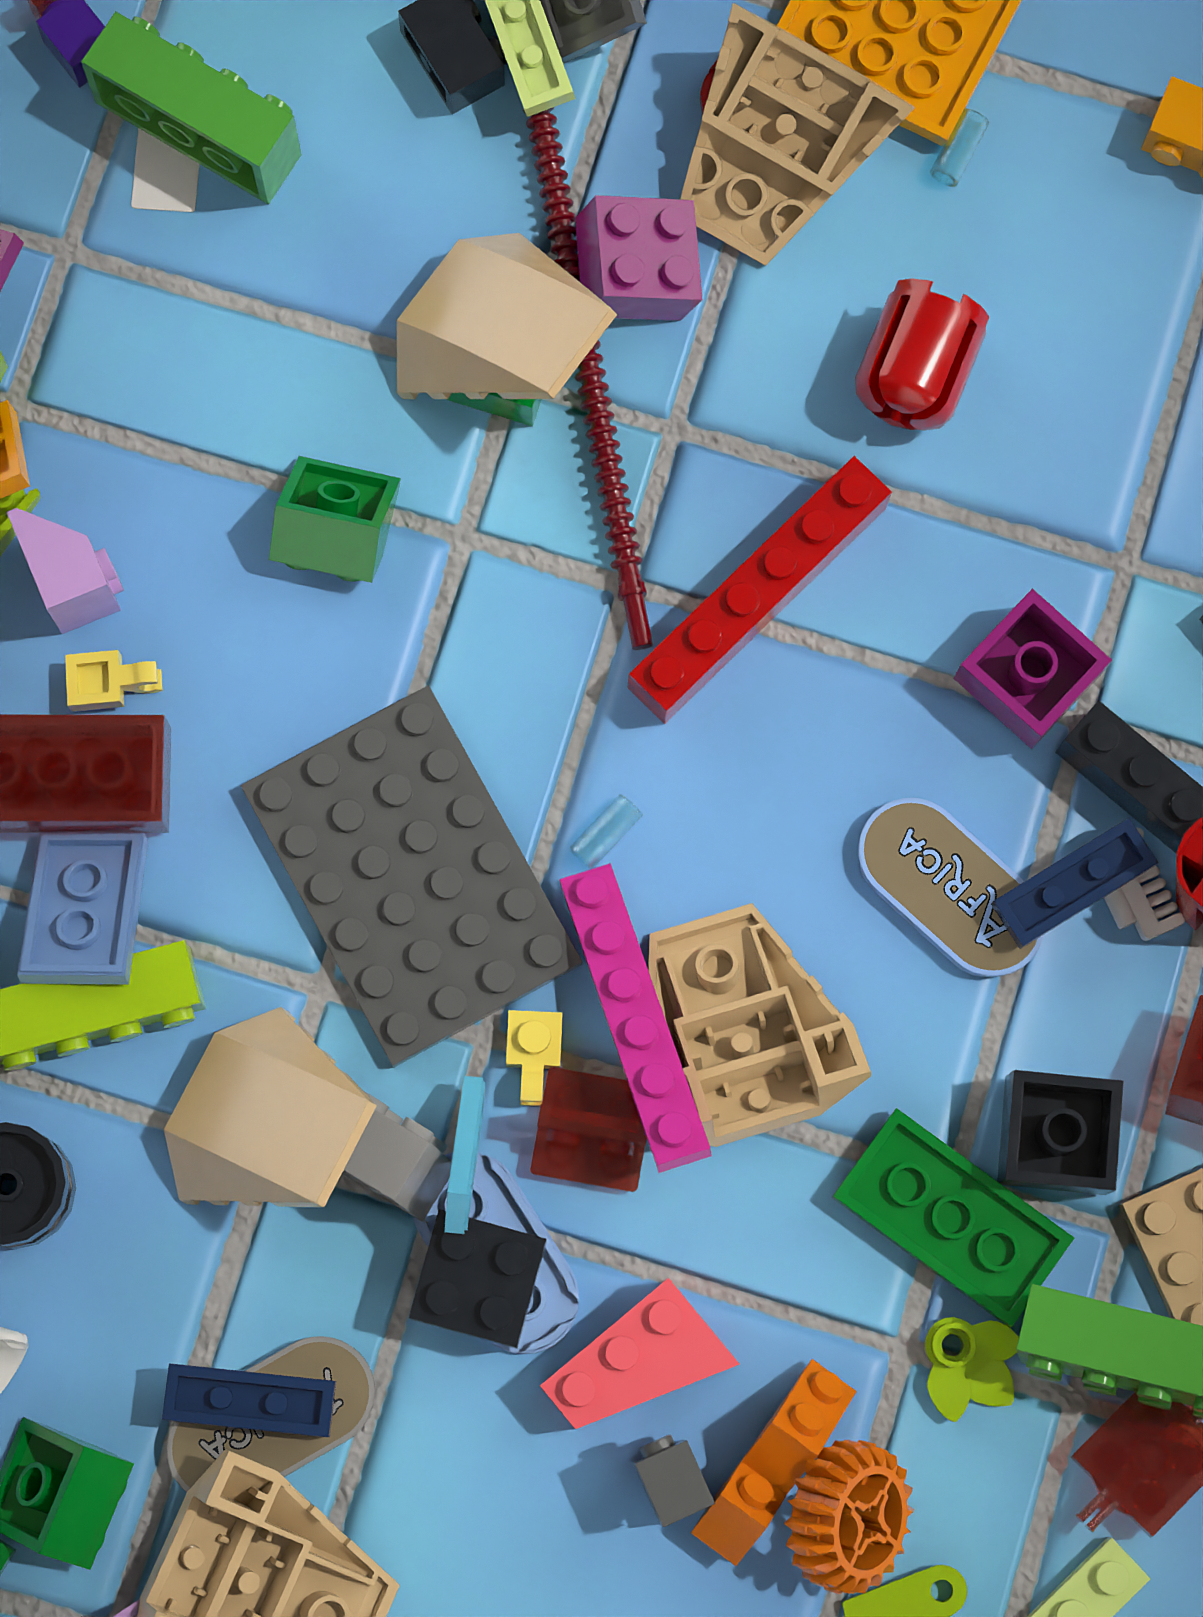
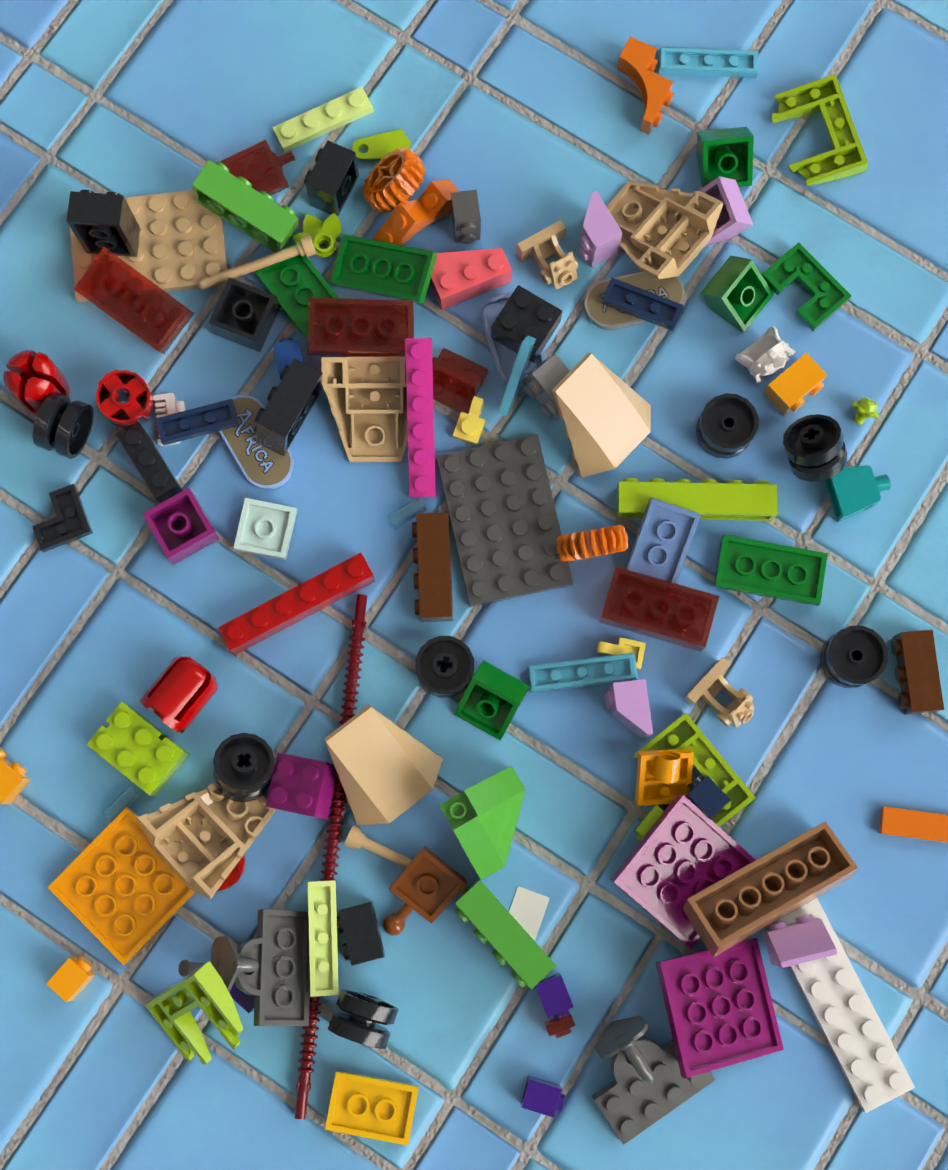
camera: 160 degrees left, 0 degrees up
(174, 616) = (582, 672): none -> medium azure tile
(220, 856) = (592, 543): none -> orange gear
(275, 268) = (486, 819): none -> bright green panel
(359, 152) = (425, 887): none -> dark orange plate
(385, 1529) = (599, 233): none -> lavender slope
(433, 1428) = (545, 245): none -> tan tile
(436, 518) = (444, 651): none -> black wheel
(509, 204) = (357, 839): none -> tan piece
(519, 735) = (434, 567): none -> reddish brown brick
(750, 227) = (243, 767): none -> black wheel
(808, 1311) = (383, 269): none -> green plate
(816, 1165) = (358, 327): none -> clear red brick
(870, 718) = (265, 529): none -> light aqua plate
(904, 955) = (287, 406): none -> black brick
(939, 1073) = (286, 351): none -> blue brick
(967, 237) = (137, 750): none -> lime piece
(982, 1483) = (331, 178): none -> black brick
(988, 1313) = (303, 247): none -> tan piece

